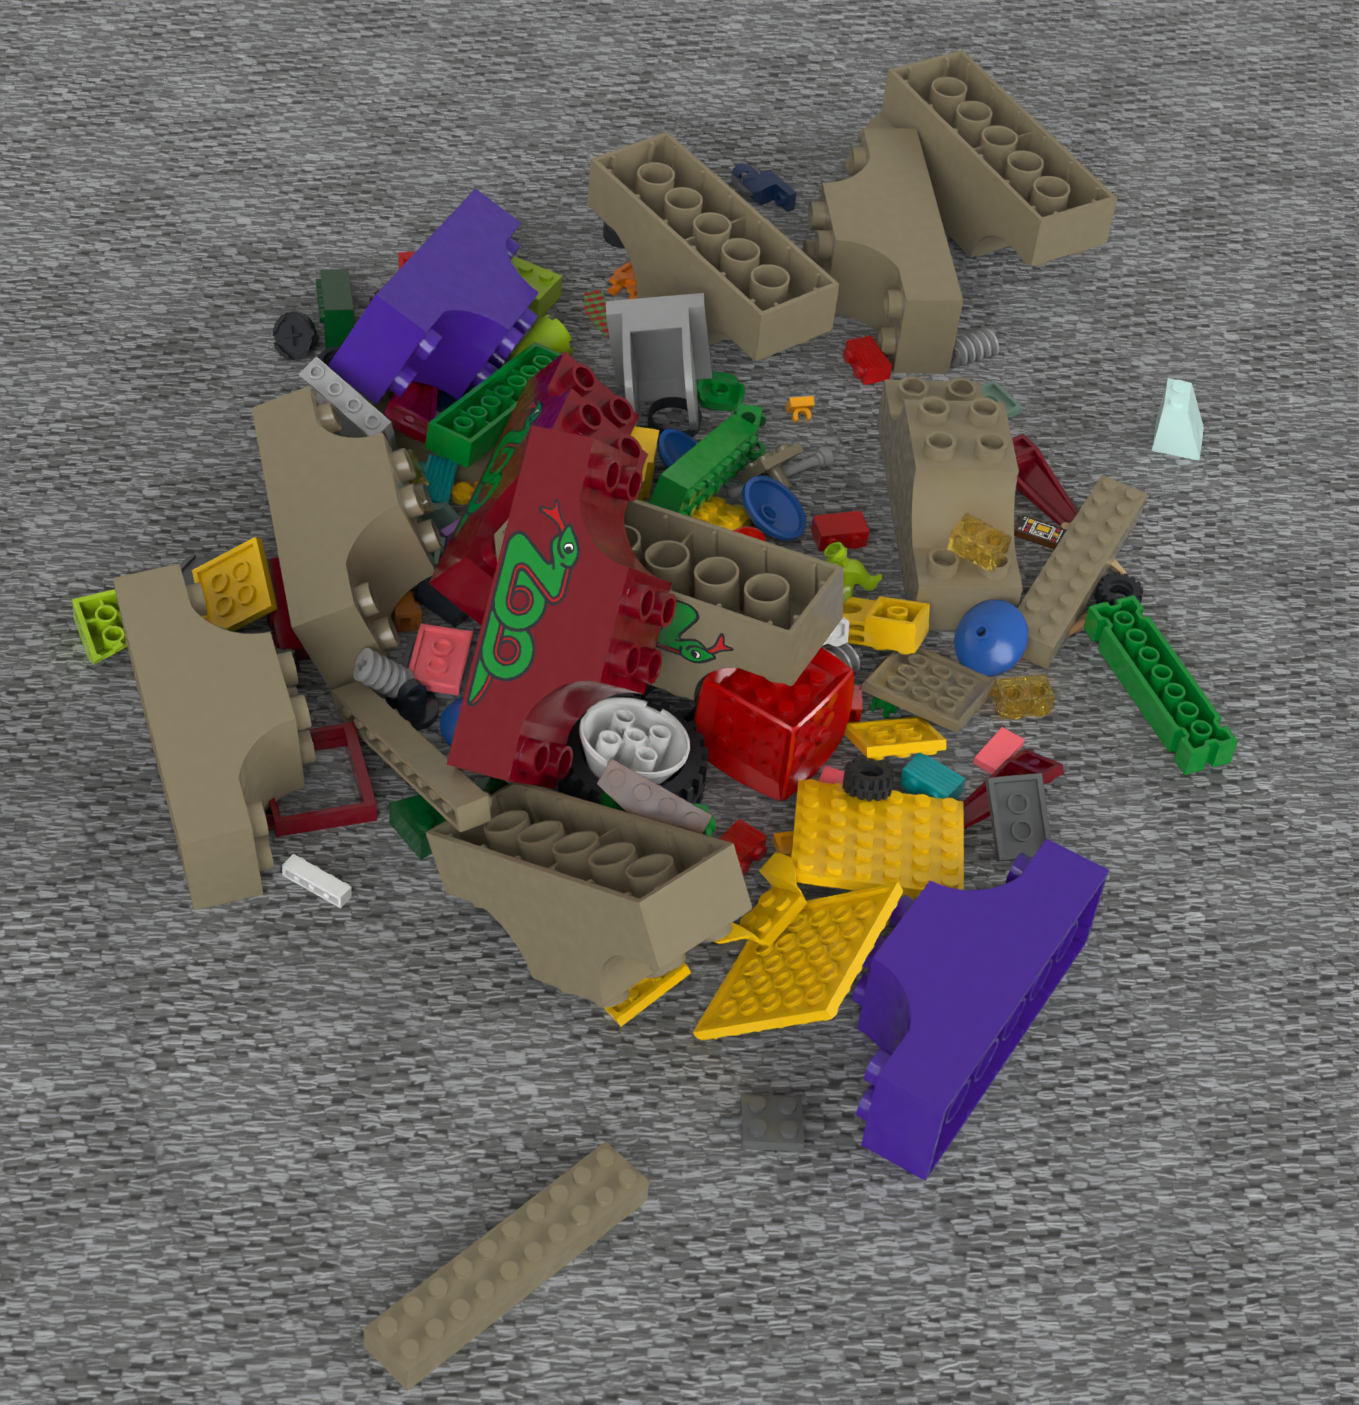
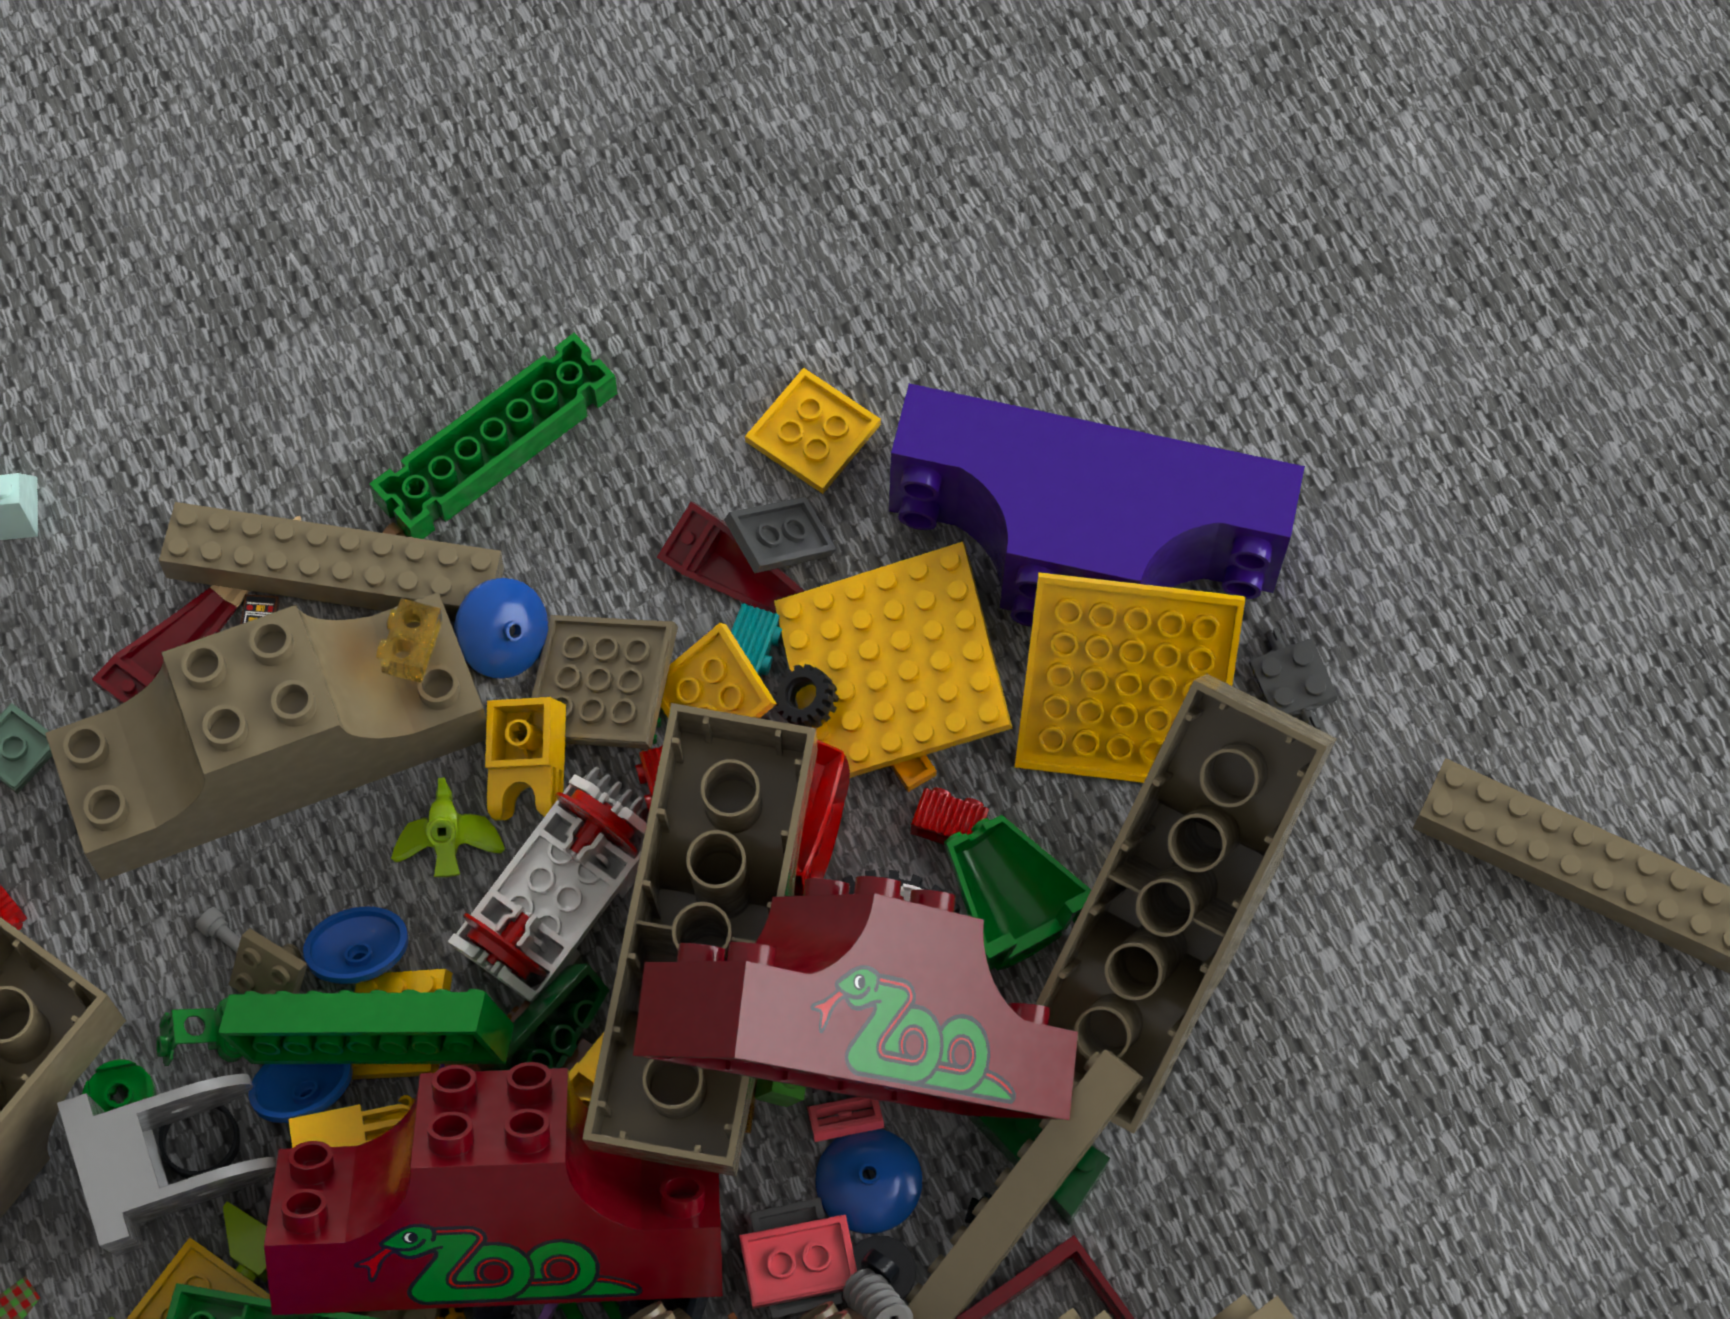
camera: 105 degrees left, 20 degrees up
(317, 880) = (1199, 1267): white piece -> none
(649, 800) = (995, 879): wedge -> none
(774, 908) = (1049, 752): yellow piece -> none
(800, 405) = (117, 980): light orange tile -> none
(843, 527) = (355, 859): red brick -> none
(998, 749) = (664, 589): coral tile -> none
(1023, 696) = (567, 581): clear yellow brick -> none
(1118, 584) = (344, 497): black tyre -> none
(1131, 880) = (813, 430): none -> yellow plate

